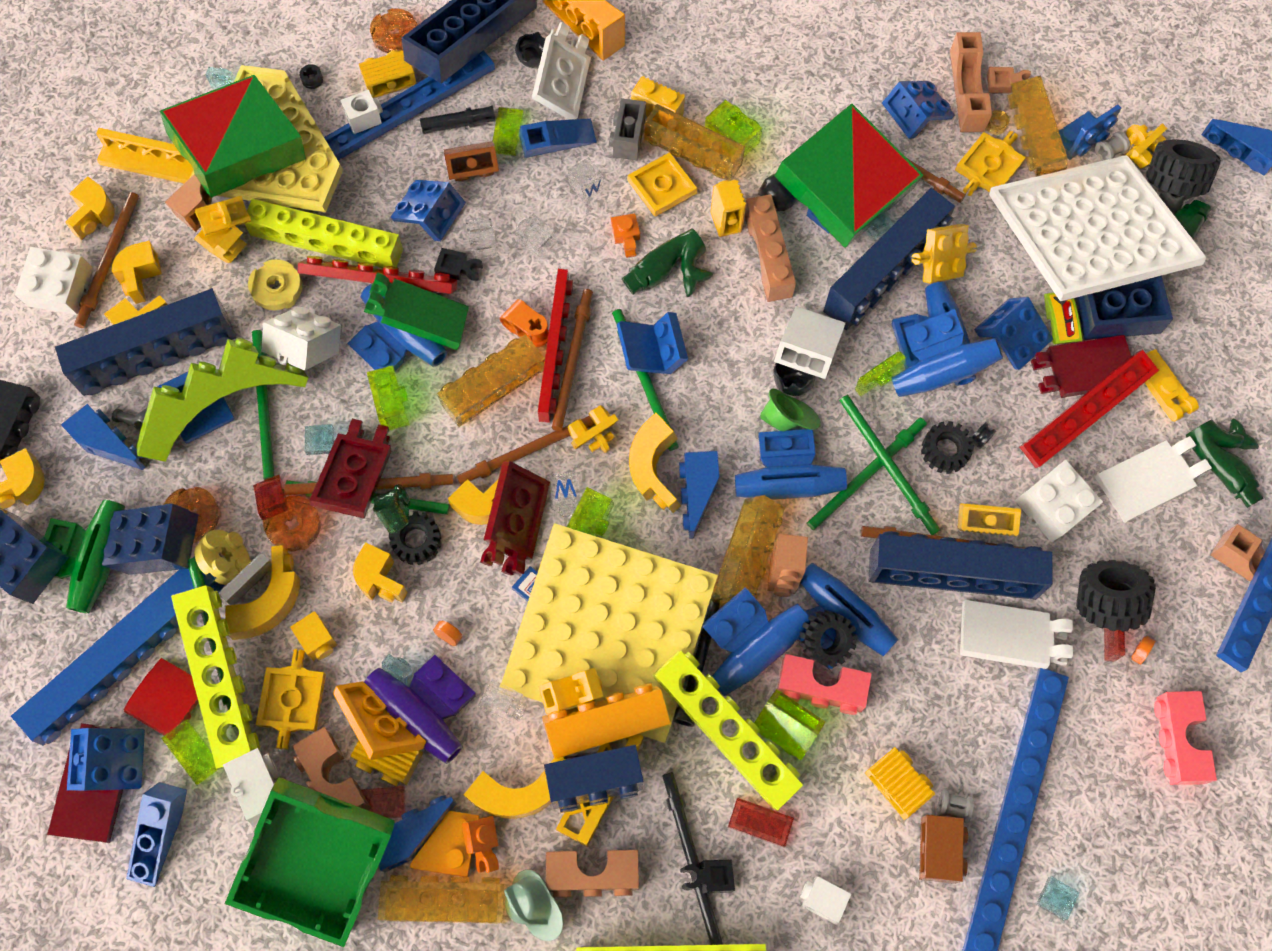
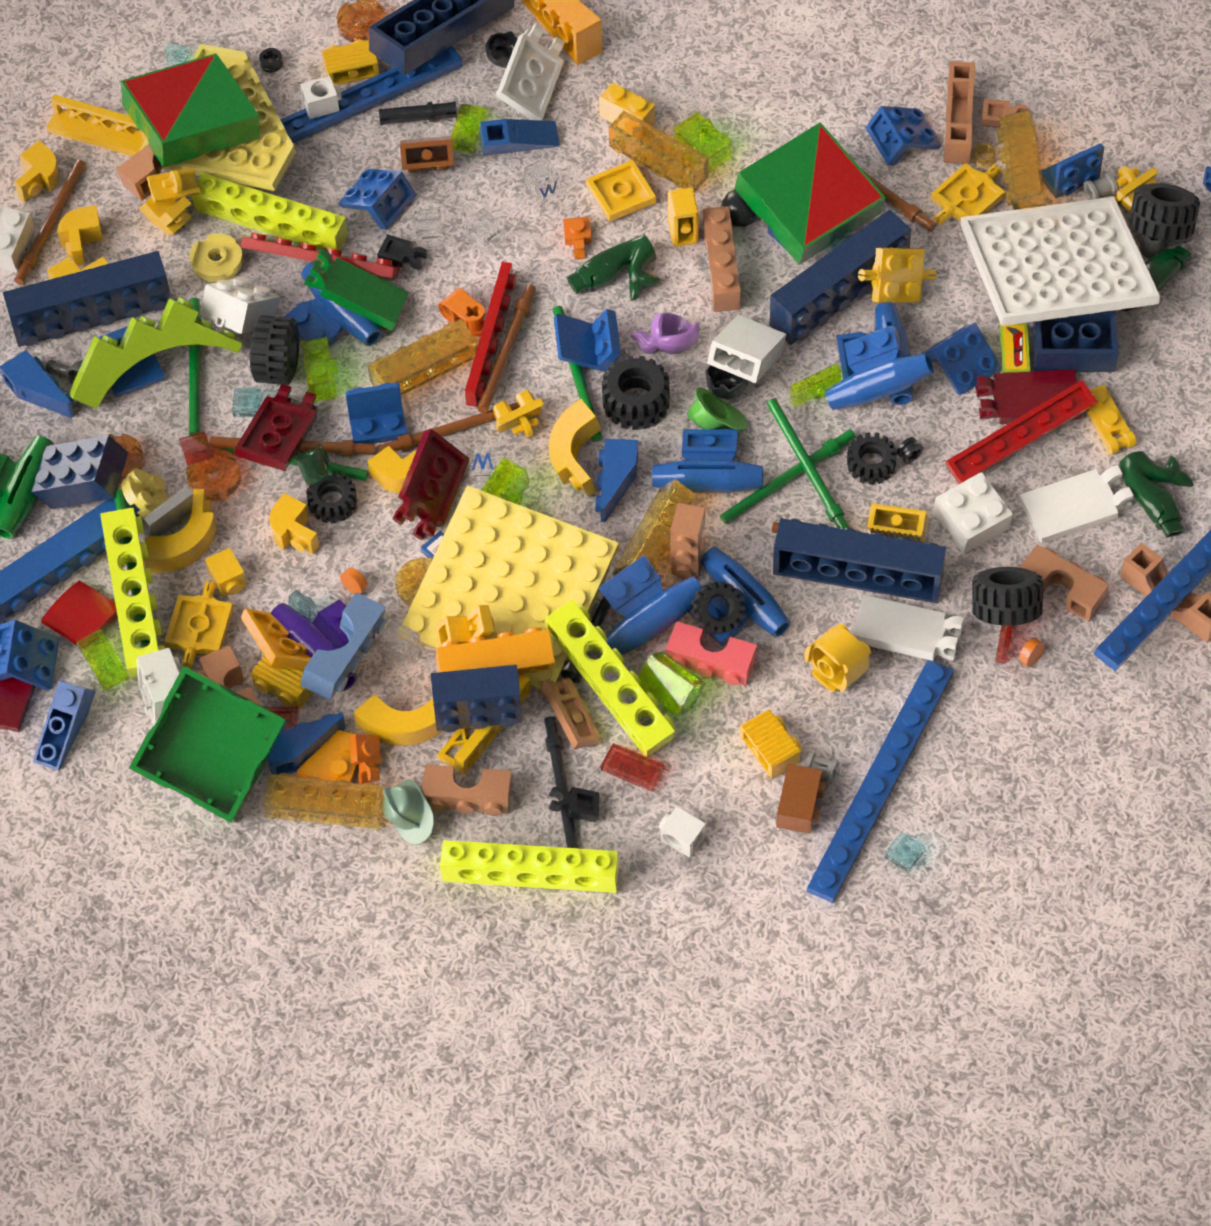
camera: 10 degrees right, 10 degrees down
(341, 384) = (274, 350): none -> black tyre
(431, 754) = (328, 670): none -> medium blue arch
(451, 444) = (376, 413): none -> blue bracket
(505, 624) = (410, 578): none -> clear yellow plate
(628, 129) = (592, 134): flat silver brick -> none
(689, 766) = (571, 712): none -> nougat plate
(707, 377) = (640, 409): none -> black tyre
(730, 330) = (668, 333): none -> medium lavender hair
(956, 680) = (838, 658): none -> yellow brick
(1183, 576) = (1086, 590): none -> nougat arch
(1183, 762) = (1055, 707): coral arch -> none

